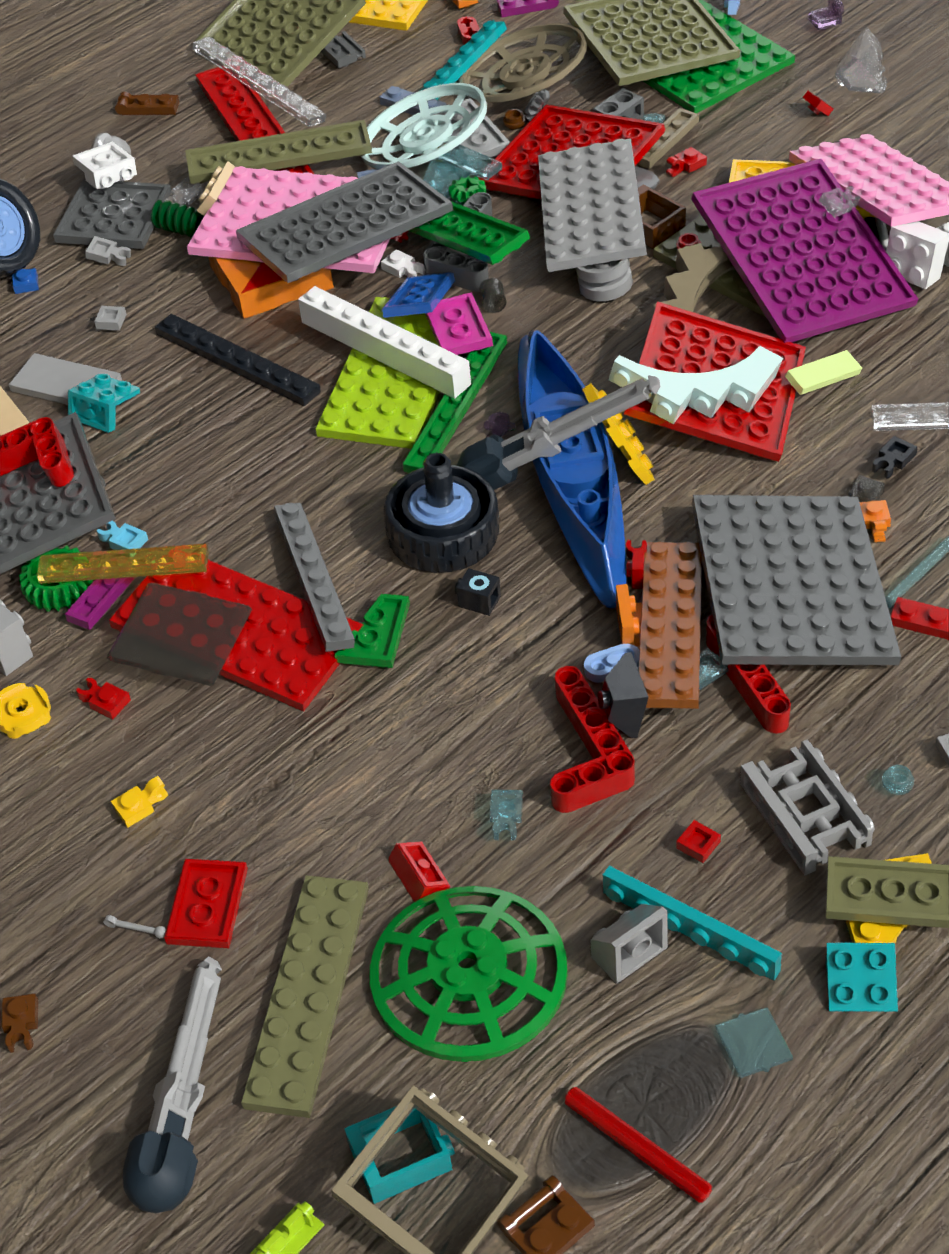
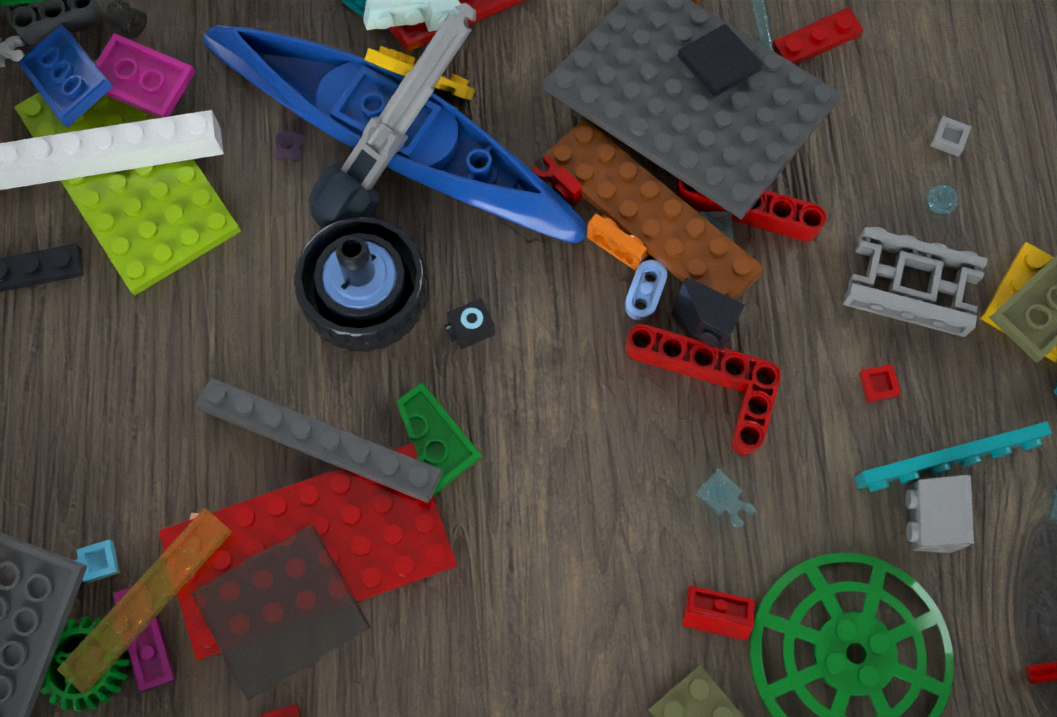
camera: 55 degrees left, 25 degrees up
(450, 410) = (235, 173): green plate -> none
(830, 567) = (720, 60): none -> black tile

